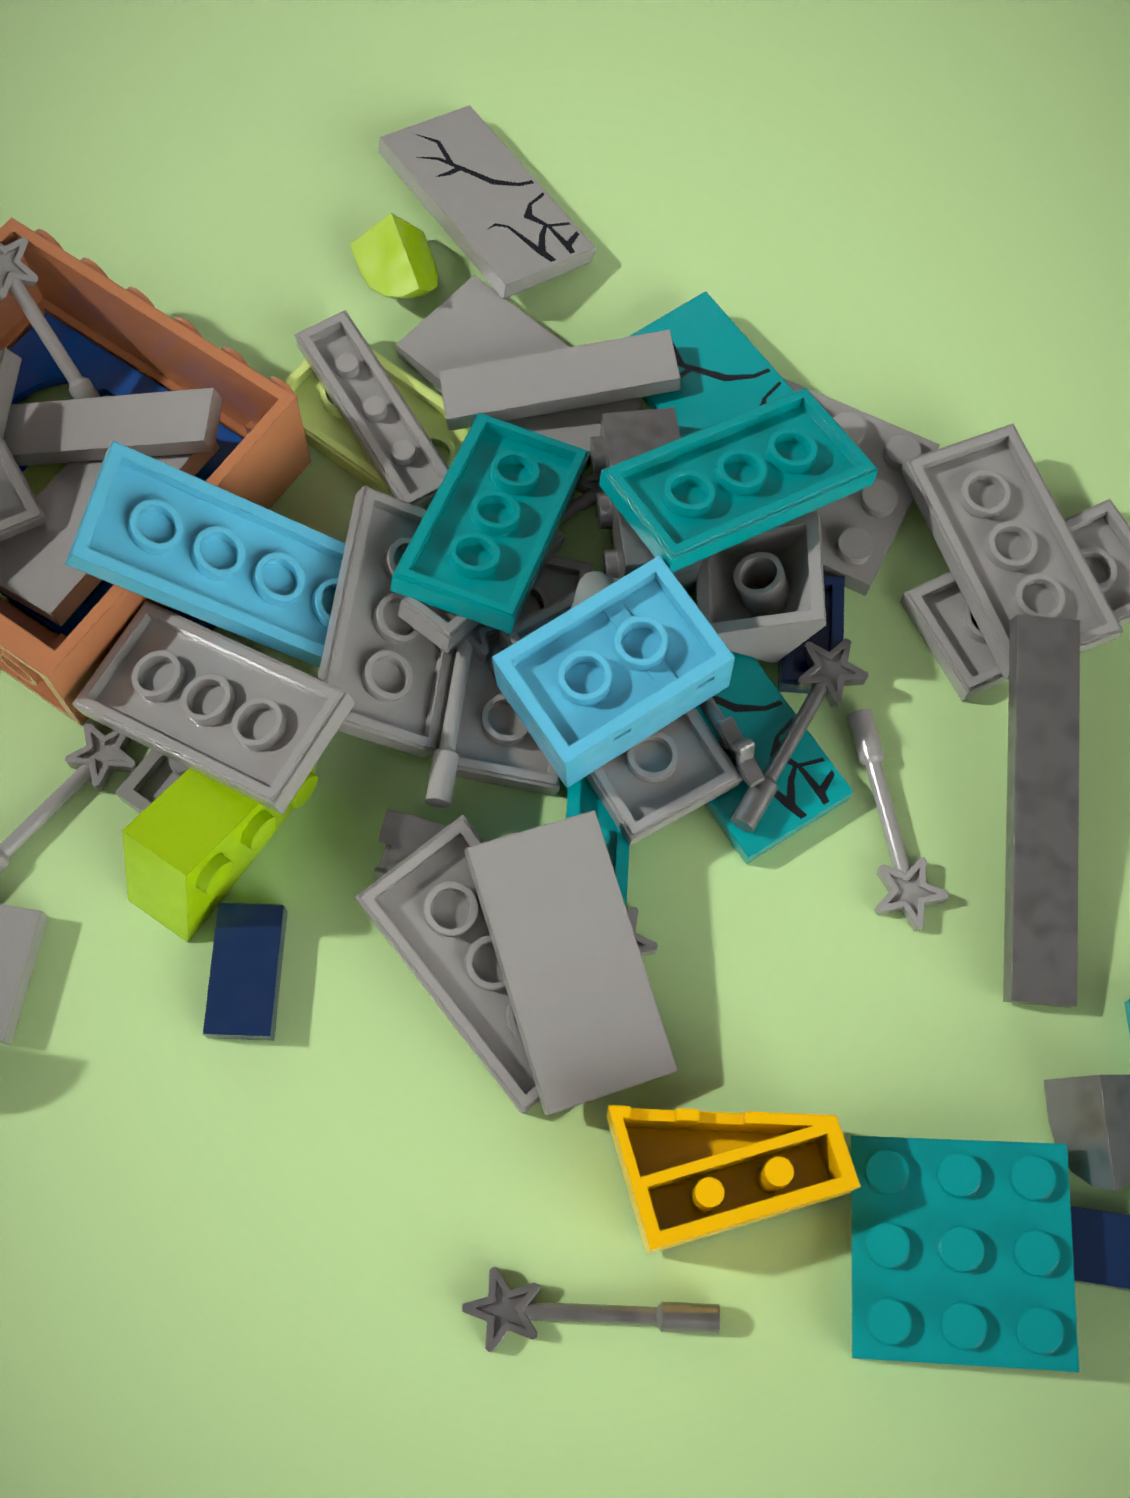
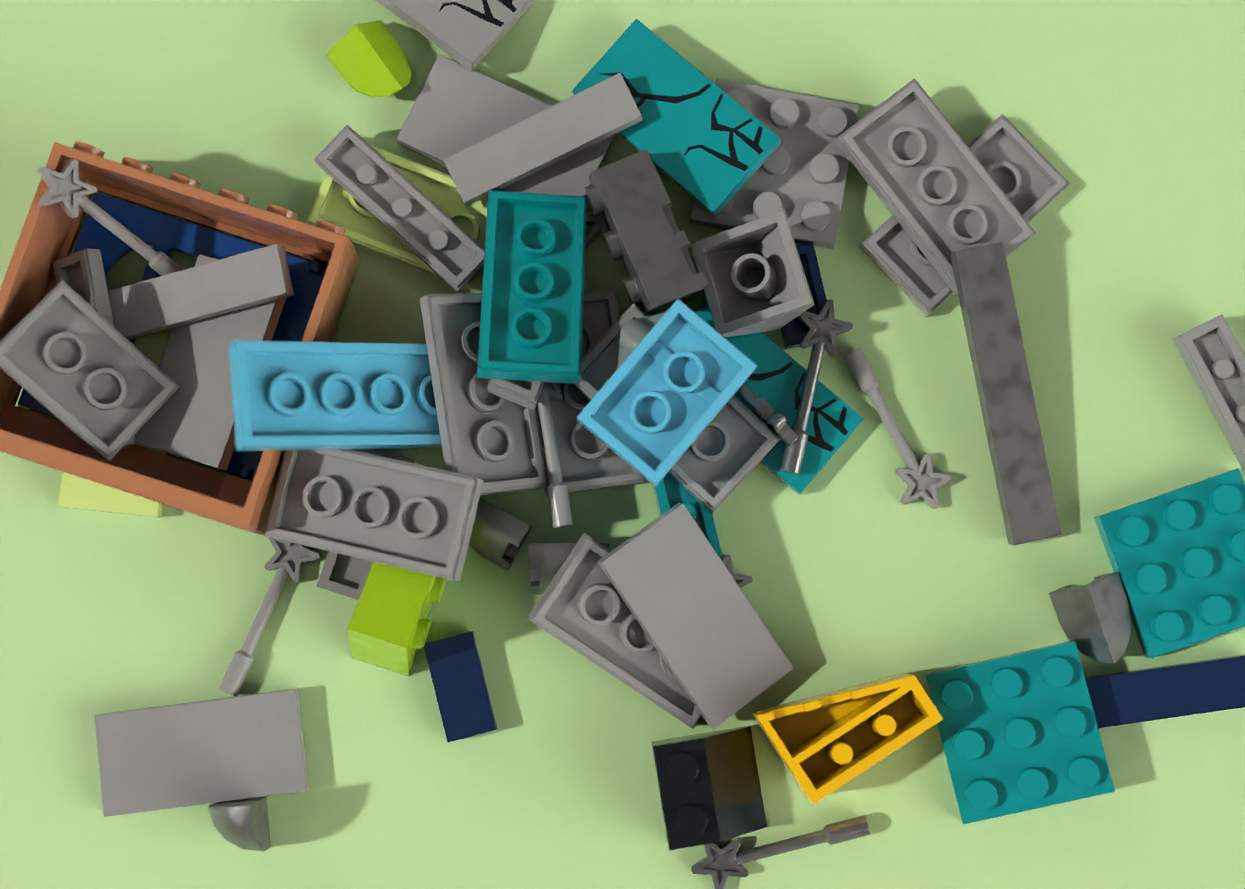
camera: 20 degrees left, 15 degrees up
(353, 793) = (497, 534): none -> flat silver brick
(518, 1194) = (709, 787): none -> black slope
(737, 479) = (716, 204): teal tile -> none

